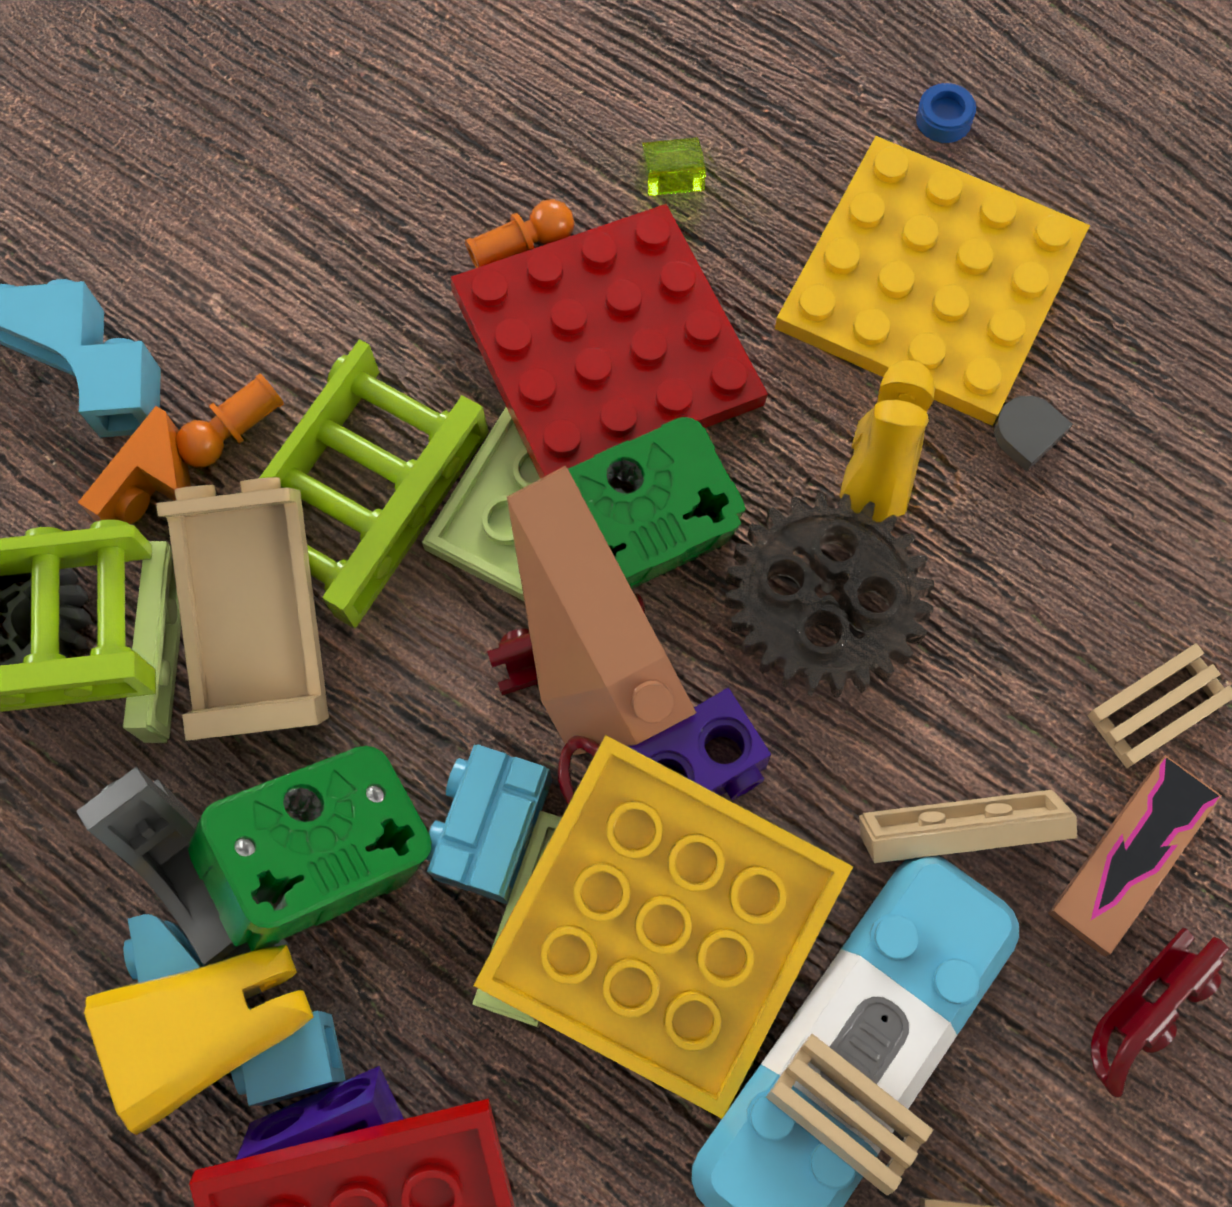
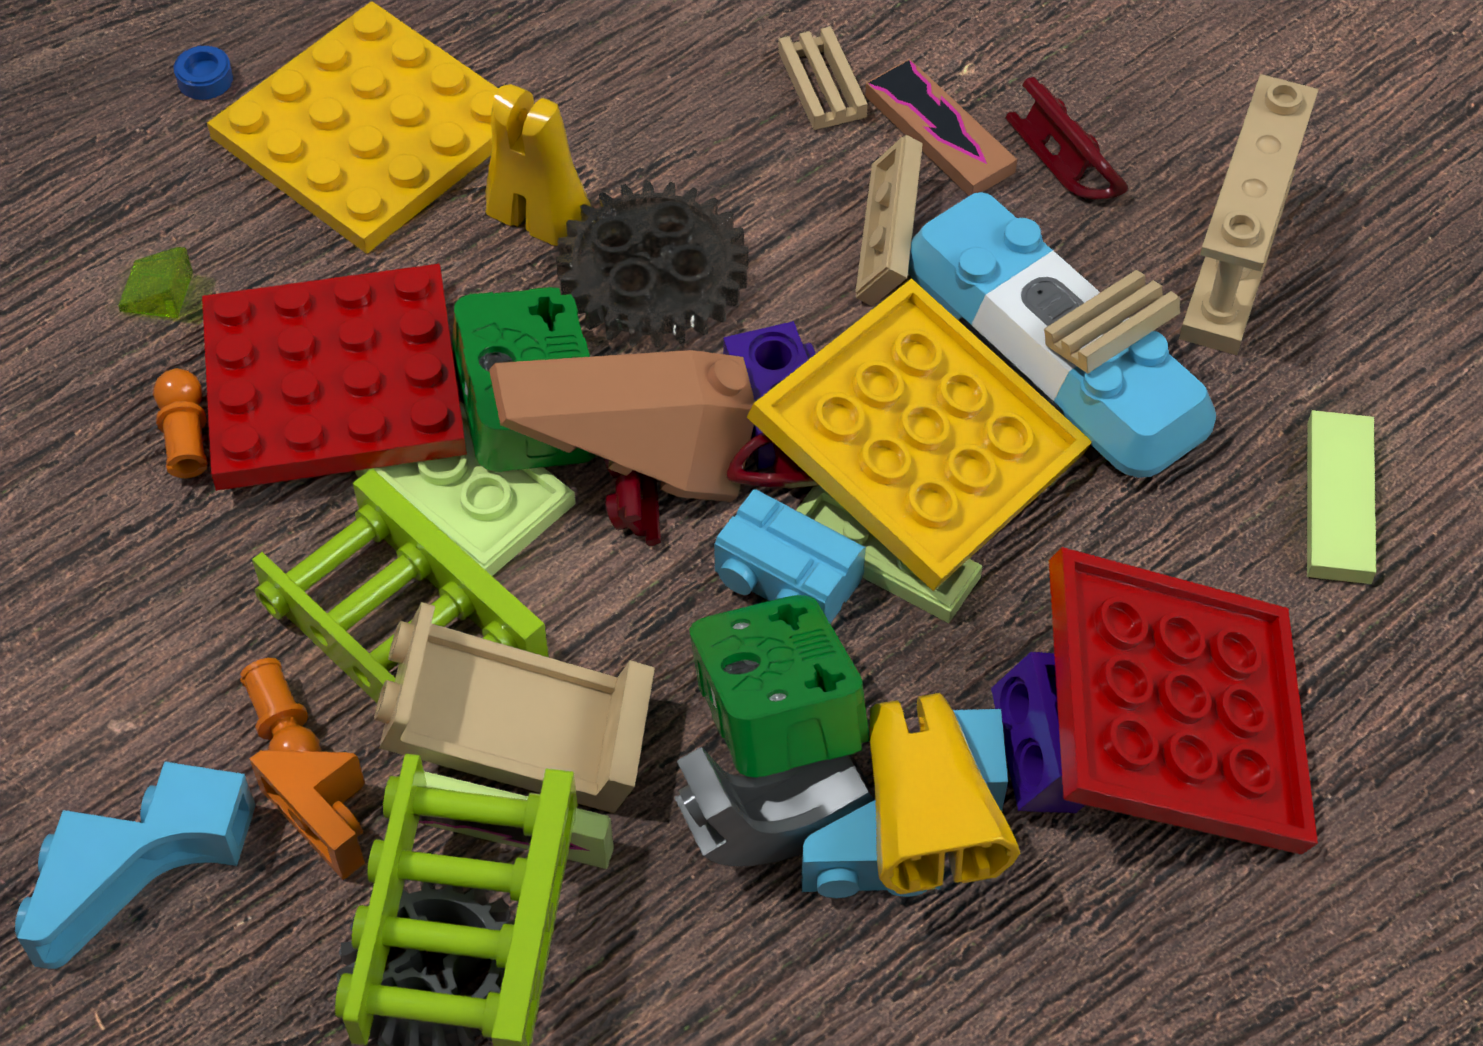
camera: 80 degrees left, 15 degrees down
(1029, 429) = (555, 86): dark grey tile -> none

